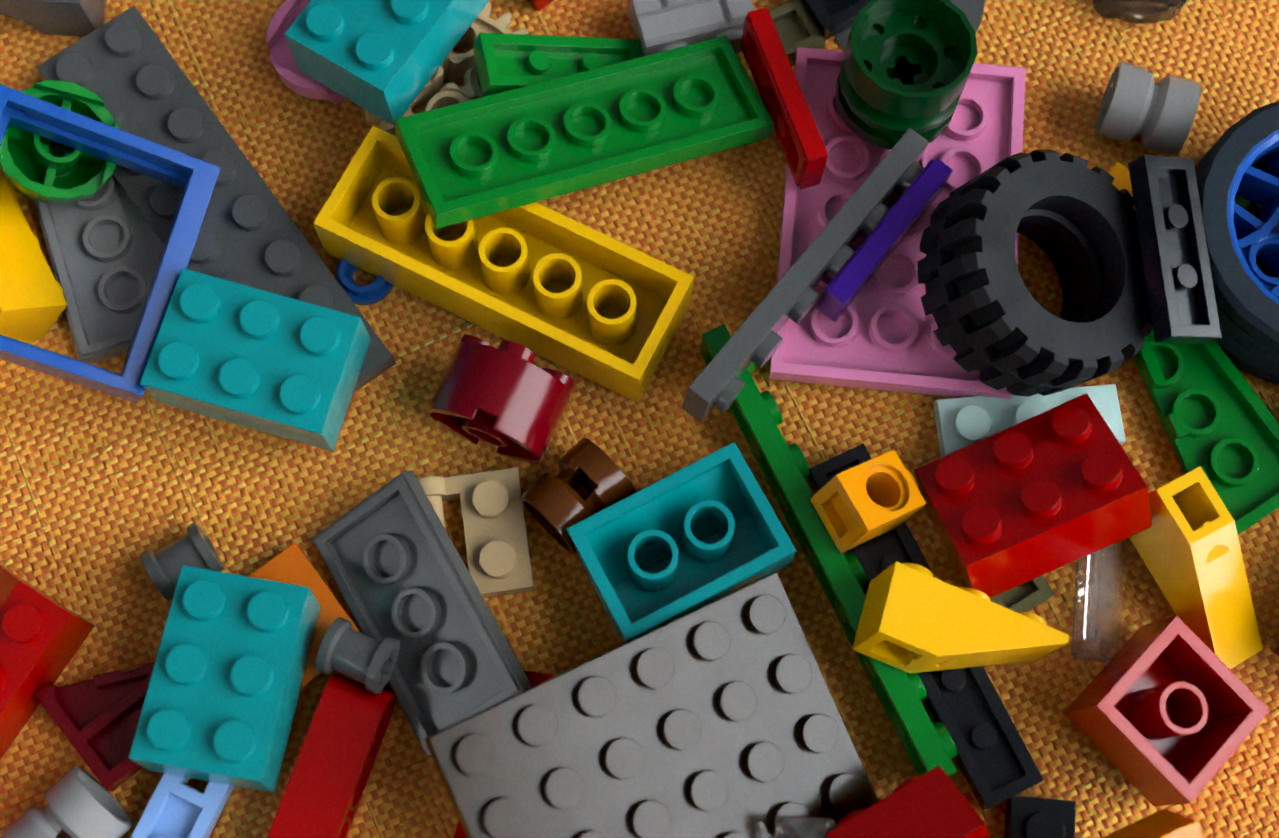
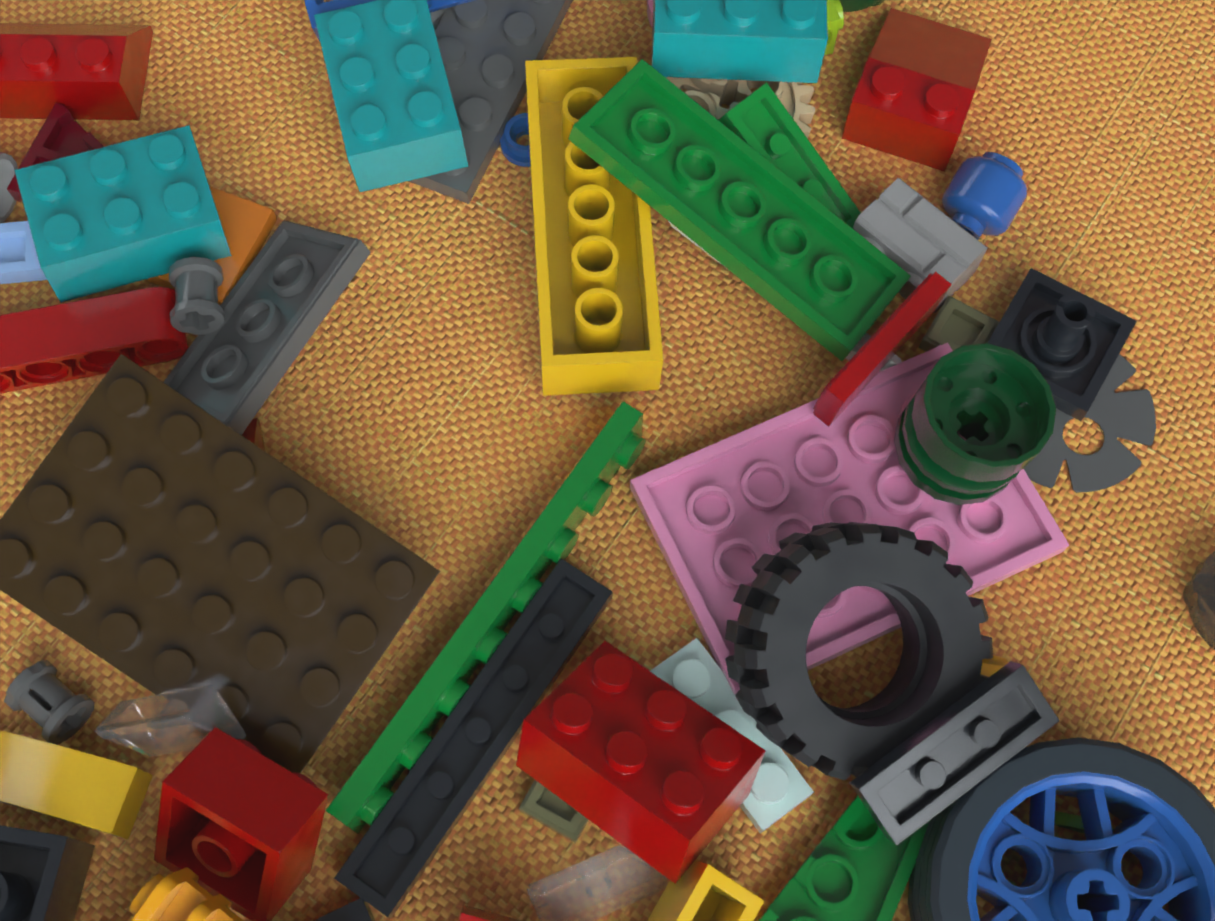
camera: 60 degrees right, 5 degrees down
(190, 550) = (217, 143): dark grey bush -> none
(492, 527) = (368, 345): tan plate -> none
(501, 398) = (469, 280): dark red brick -> none
(558, 505) = (406, 391): reddish brown wheel -> none
(681, 543) = (426, 485): teal slope -> none
(794, 293) = (704, 446): dark grey plate -> none
(851, 513) = (522, 613): light orange brick -> none
(884, 239) = (804, 499): dark purple tile -> none
(935, 626) = (464, 733): yellow slope -> none
(1155, 111) = (1108, 675): light grey wheel -> none

